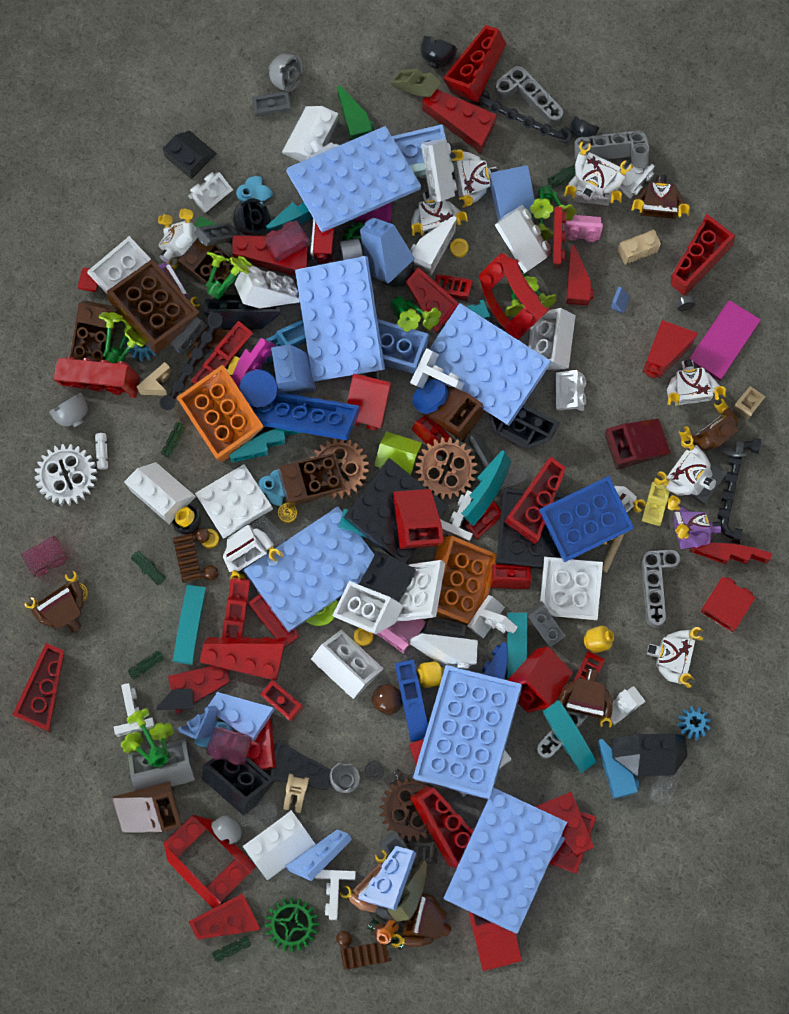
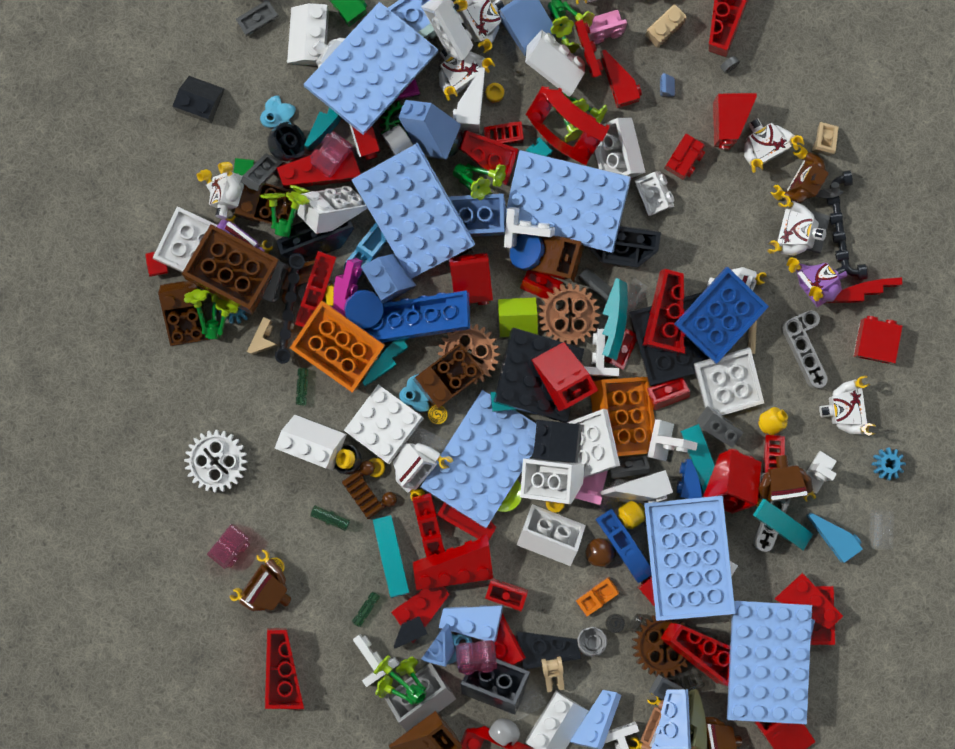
camera: 20 degrees left, 10 degrees up
(70, 411) = (194, 399): light grey cylinder -> none
(97, 375) = (204, 355): red wedge -> none
(101, 451) = (239, 424): white axle -> none
(210, 191) = (235, 129): white bracket -> none
(367, 739) = (597, 596): none -> orange slope
(610, 369) = (684, 157): none -> red brick
(636, 442) = (736, 219): dark red slope -> none
(650, 753) = (861, 510): black wedge -> none
(655, 504) = (775, 270): light yellow slope -> none
(724, 340) = (779, 86): dark pink tile -> none

